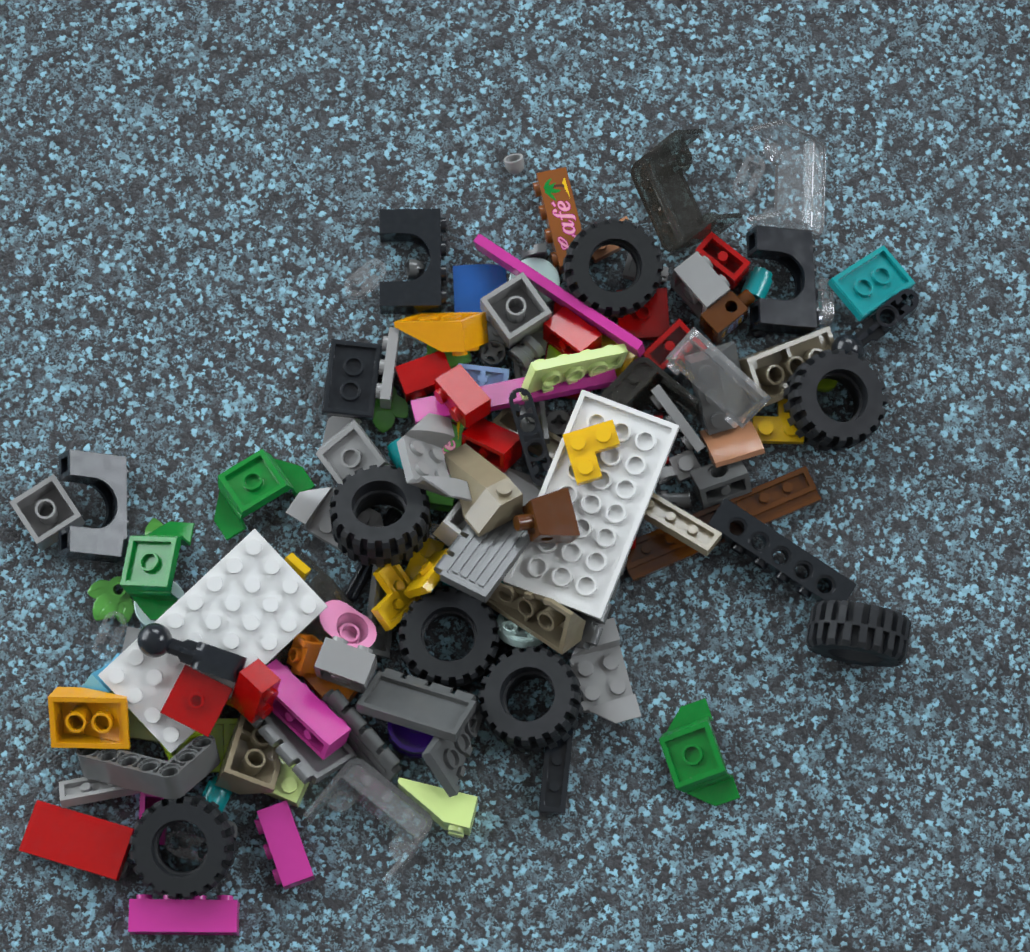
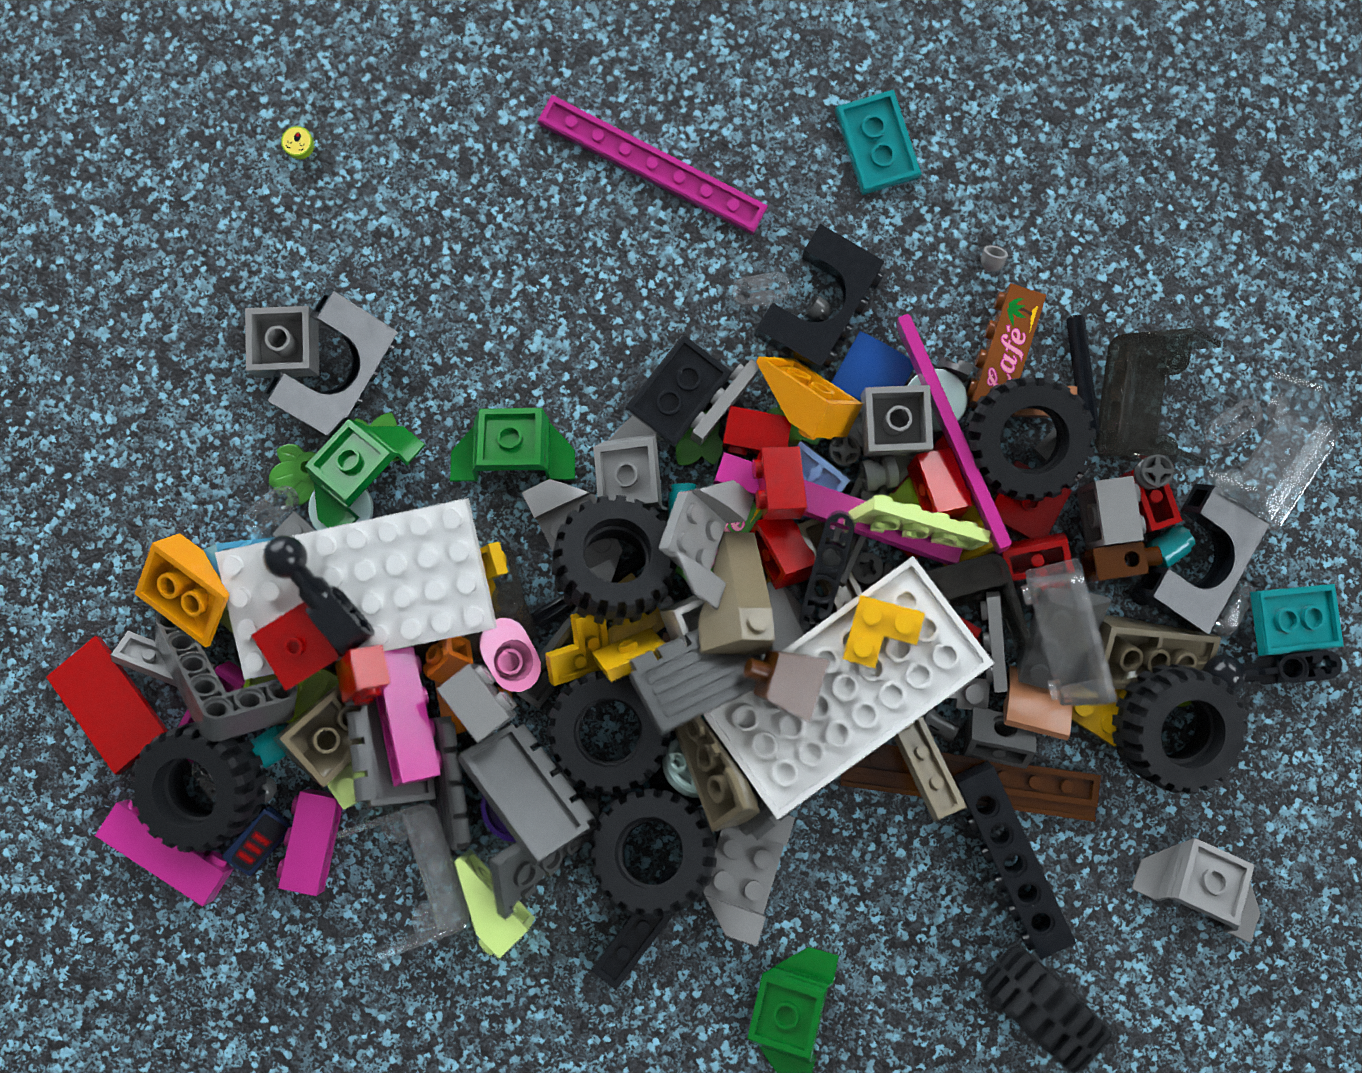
camera: 35 degrees right, 10 degrees up
(233, 238) = (652, 164): none -> dark pink tile
(246, 871) = (257, 841): none -> slope
(384, 131) = (877, 142): none -> teal tile
(622, 202) = (1082, 366): none -> black axle
(709, 235) = (1161, 470): none -> dark grey wheel
(922, 492) = (1203, 881): none -> light grey piece

